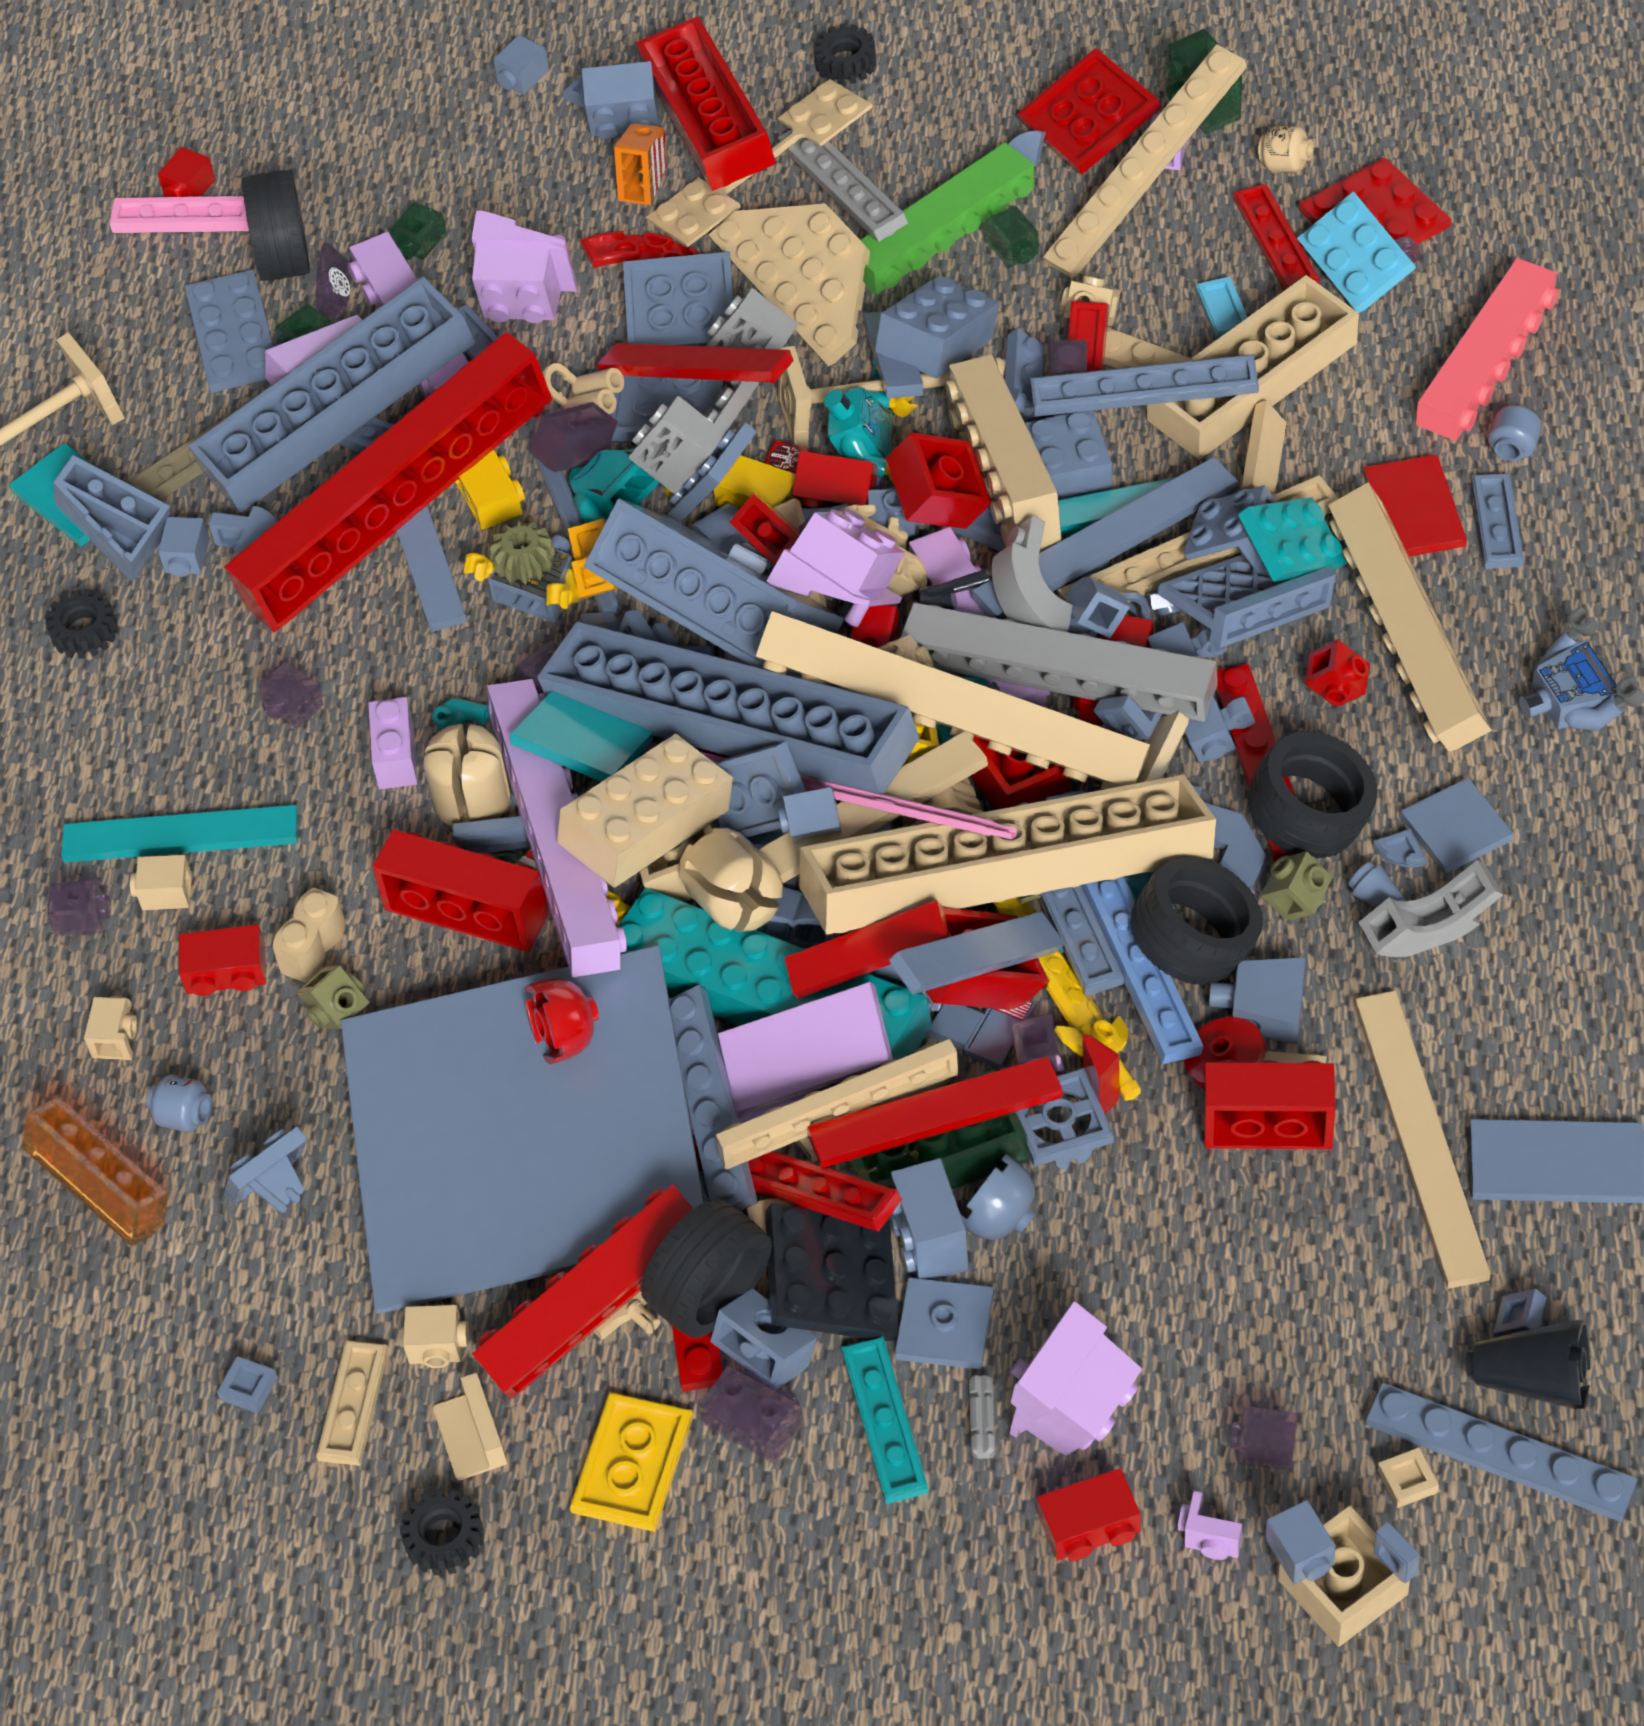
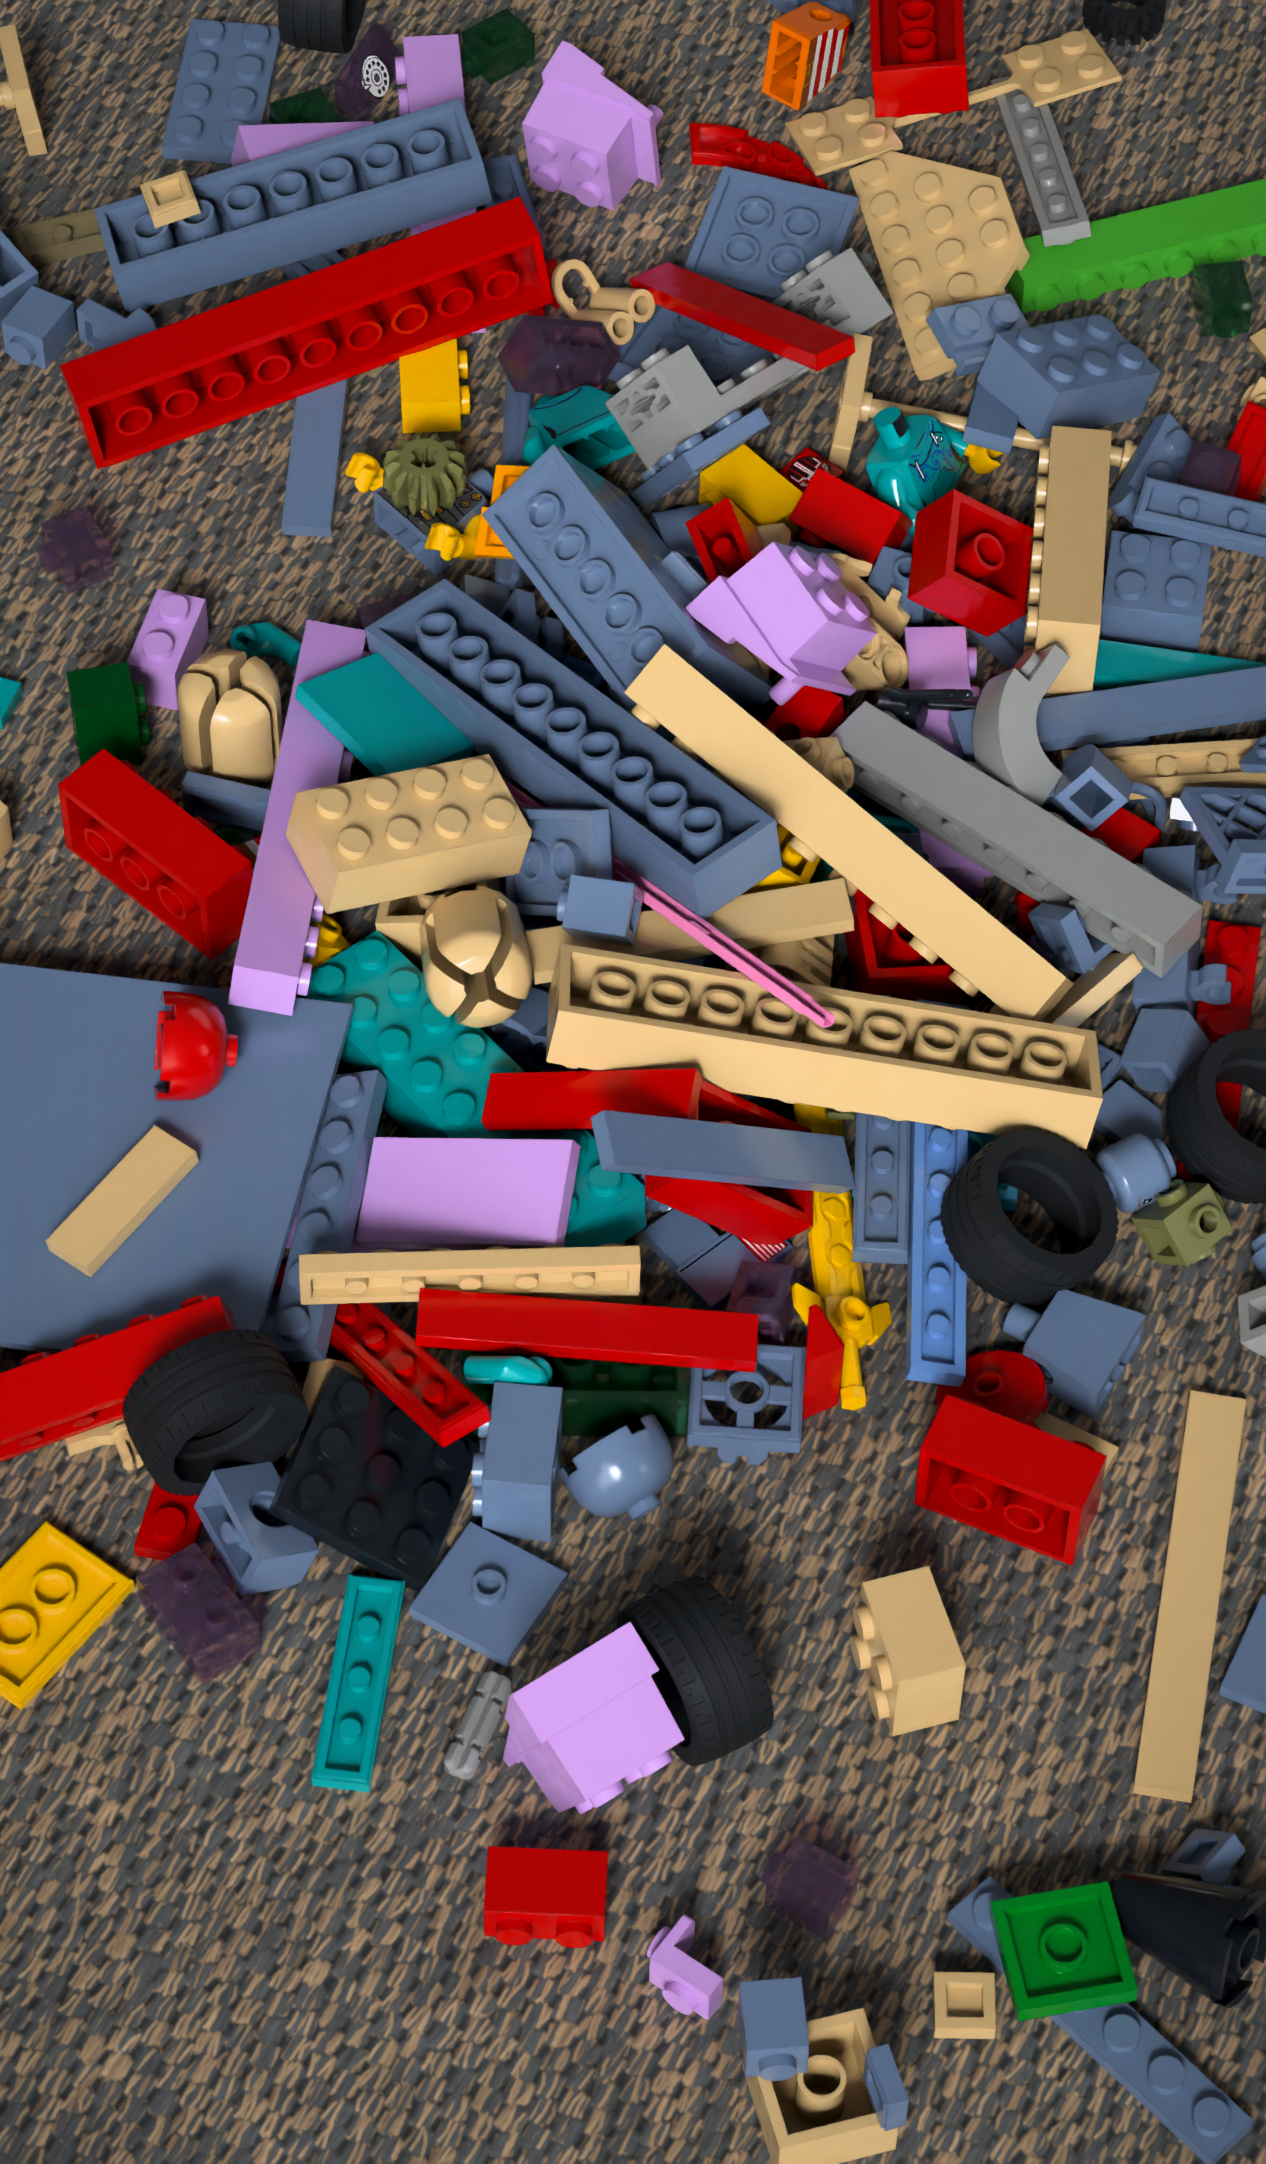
camera: 15 degrees right, 0 degrees up
(243, 419) = (170, 199): none -> tan tile
(375, 805) = (106, 712): none -> dark green brick
(561, 1145) = (122, 1201): none -> tan tile
(859, 316) = (970, 328): none -> sand blue plate
(894, 1160) = (507, 1370): none -> teal arm
(1136, 1308) = (704, 1667): none -> black tyre
(1226, 770) = (1162, 1047): none -> sand blue brick
(1252, 860) = (1136, 1170): none -> sand blue head
(1258, 1250) = (908, 1652): none -> tan brick
(1461, 1413) = (1063, 1951): none -> green plate

